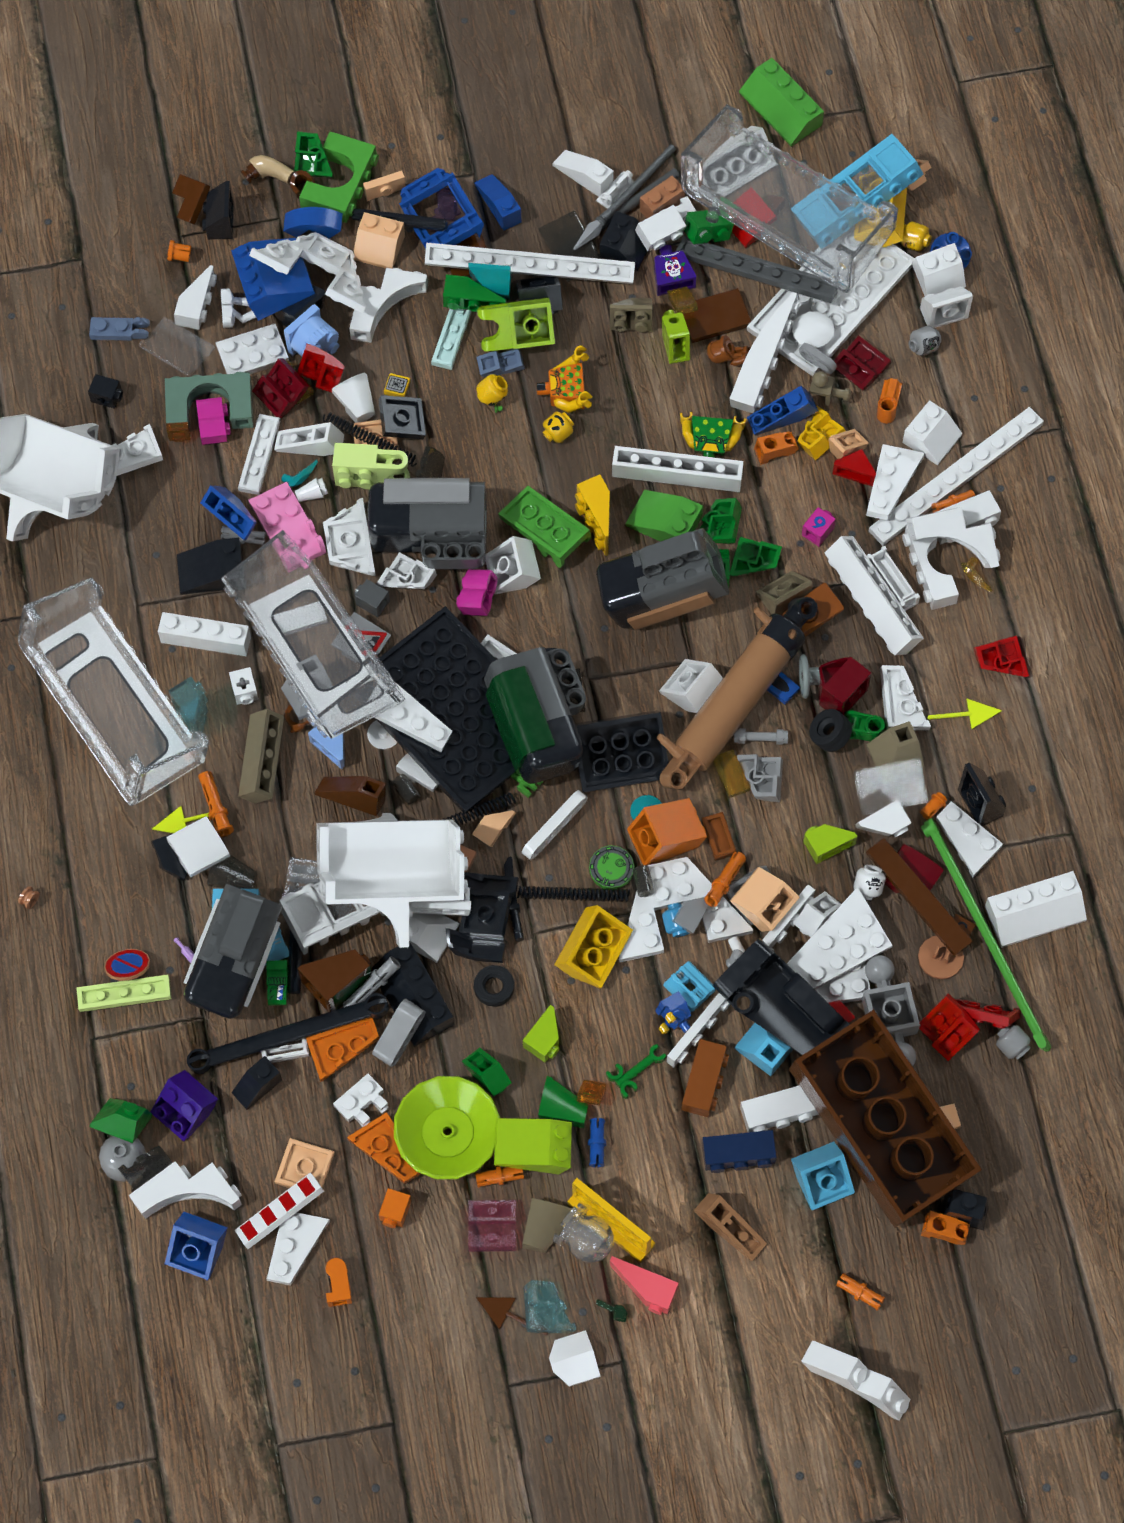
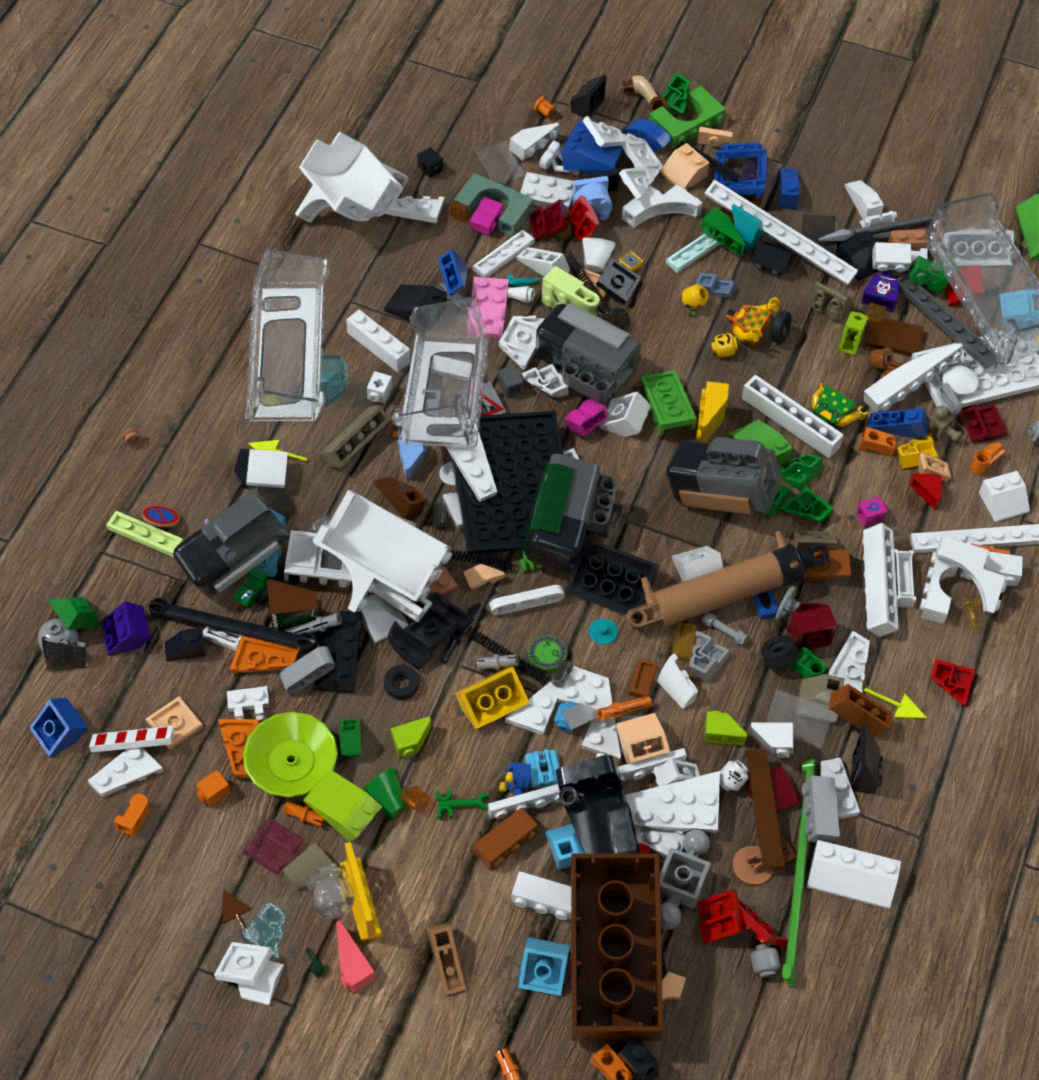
camera: 30 degrees right, 10 degrees down
(118, 328) = (469, 132): sand blue hinge -> none
(174, 1186) = (80, 679): white arch -> none
(194, 194) = (580, 76): reddish brown tile -> none
(218, 813) = (299, 457): orange pin -> none
(512, 321) = (739, 262): lime brick -> none
(552, 1354) = (243, 963): none -> white tile
(573, 907) = (497, 662): none -> light grey pin
(597, 1142) = (393, 835): blue pin -> none
(602, 373) = (781, 326): none -> black tyre
(666, 831) = (606, 650): orange slope -> none
(739, 1151) = (493, 907): dark blue brick -> none
(756, 822) = (677, 683): none -> white slope
(892, 477) = (951, 510): white wing -> none
(934, 805) = (826, 752): orange pin -> none
(945, 745) = (860, 710): none -> dark orange brick
(971, 865) = (821, 809): none -> light grey brick

